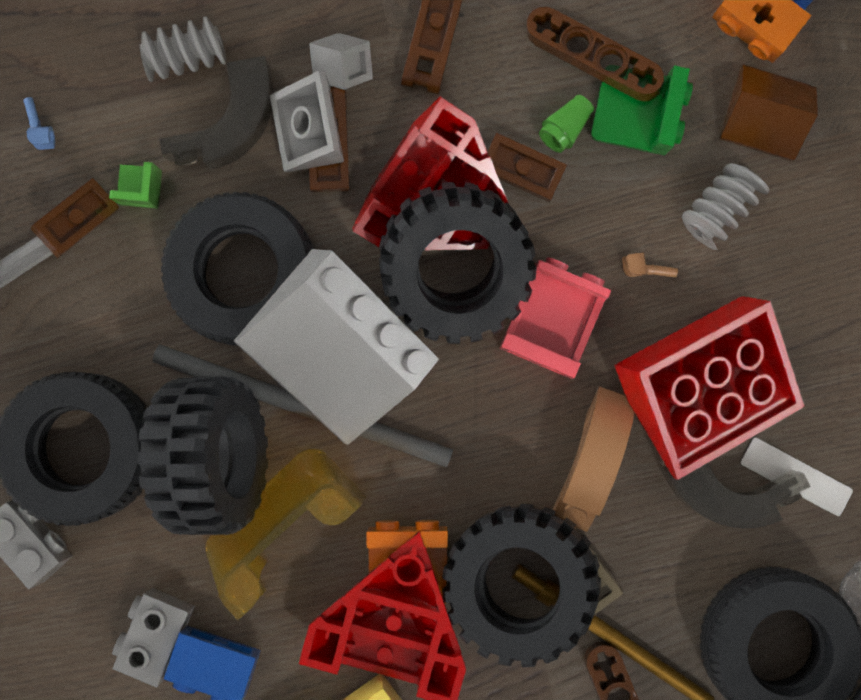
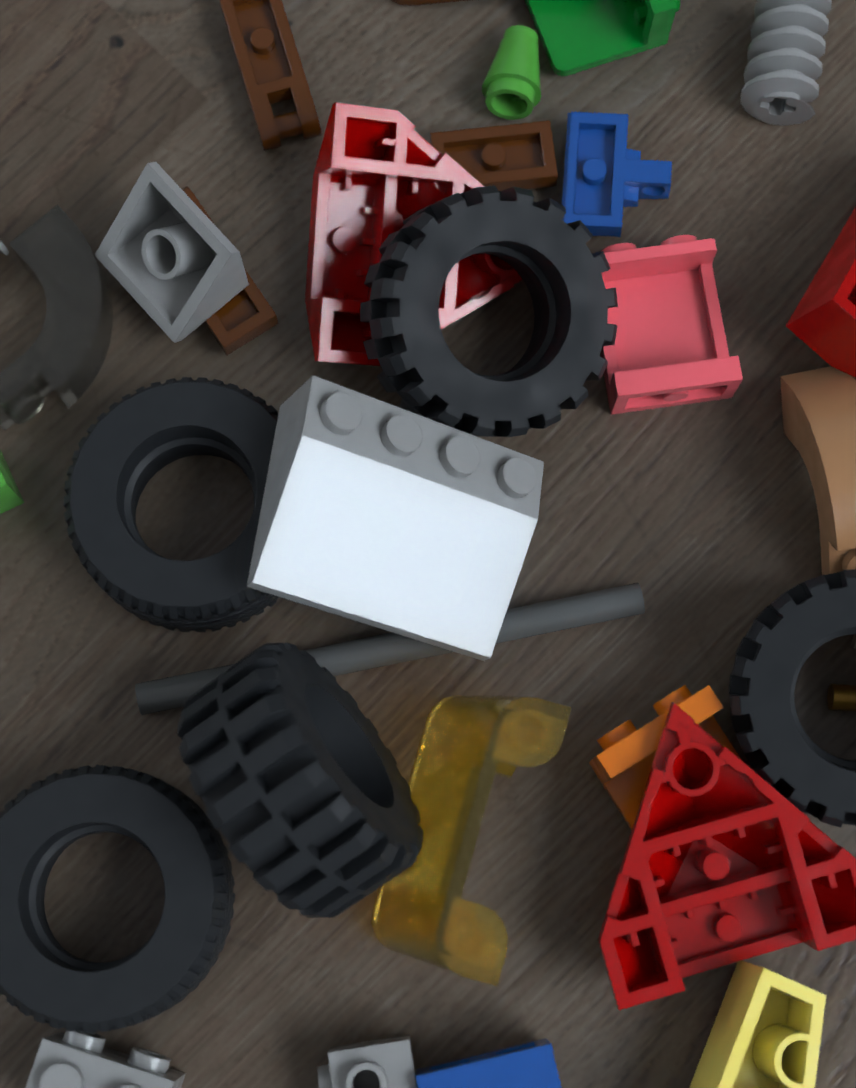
camera: 30 degrees left, 10 degrees down
(343, 59) = (175, 146): light grey panel -> none
(578, 213) = (605, 174): none -> blue hinge
(635, 265) = (722, 200): medium nougat hand -> none

